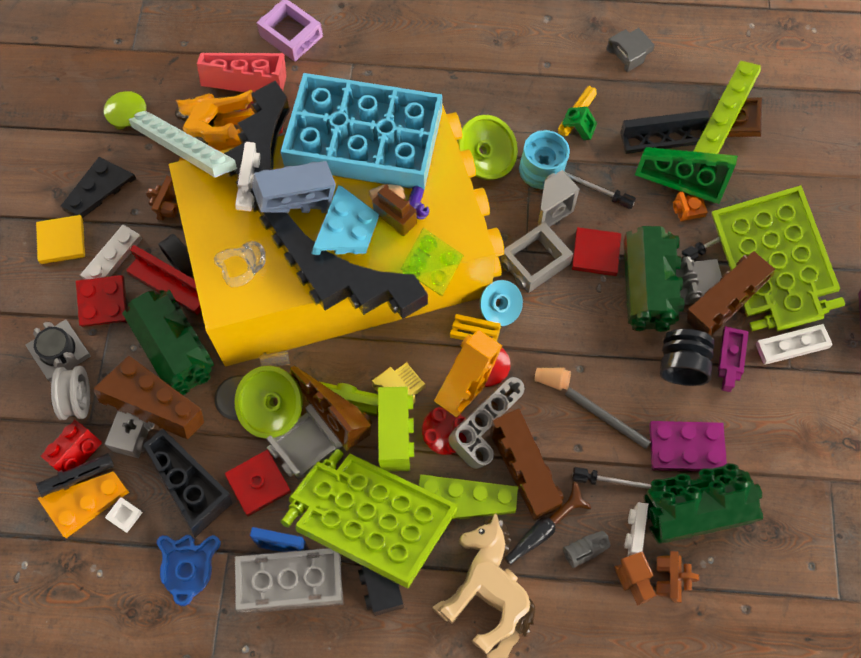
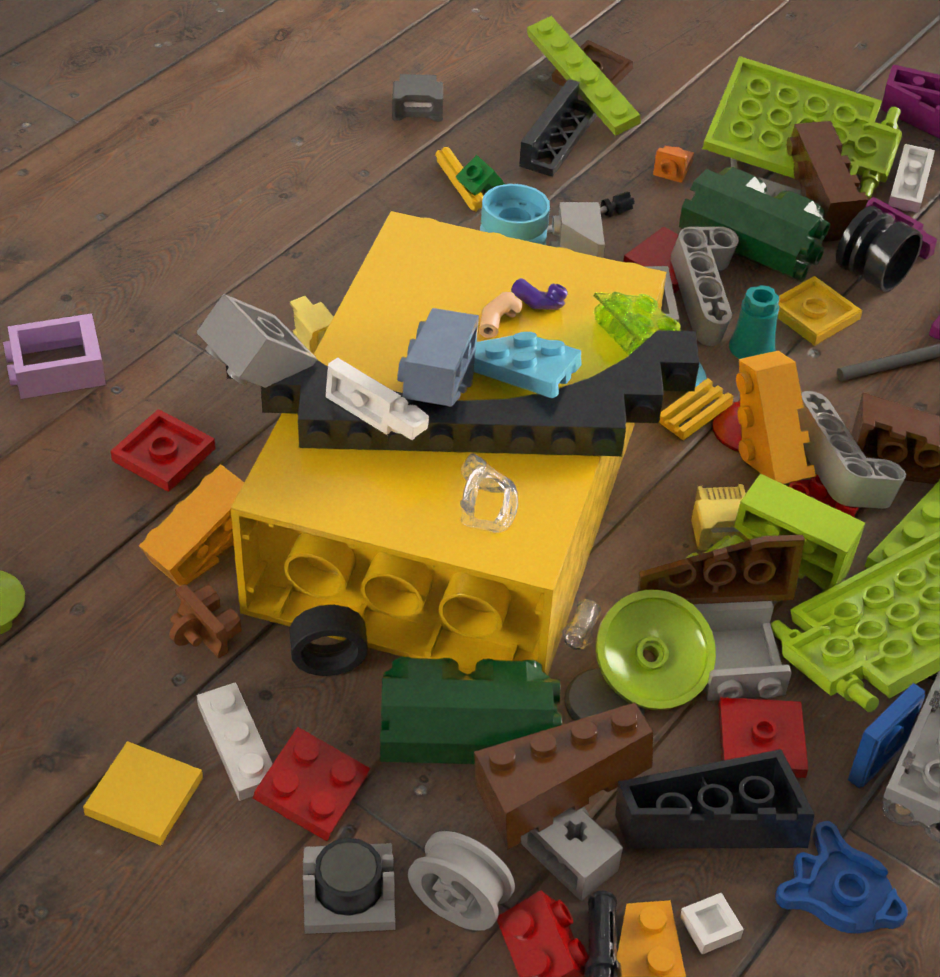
camera: 60 degrees left, 20 degrees down
(95, 186) = (91, 702): black wing -> none
(164, 277) = (348, 686): red fence -> none
(183, 144) = (188, 497): light aqua plate -> none
(214, 118) = (147, 481): light orange animal -> none
(241, 70) = (85, 426): coral wedge -> none
(253, 103) = (253, 343): none -> light grey slope
(363, 130) = (383, 274): medium azure brick -> none
(395, 210) = (538, 307): reddish brown piece -> none
(553, 377) = (819, 370): light nougat cone -> none
(560, 328) = (756, 323): none -> teal plant
(578, 281) = (696, 263): none -> light grey beam
(616, 350) = (816, 310): none -> yellow tile
(688, 171) = (636, 130): green wedge -> none

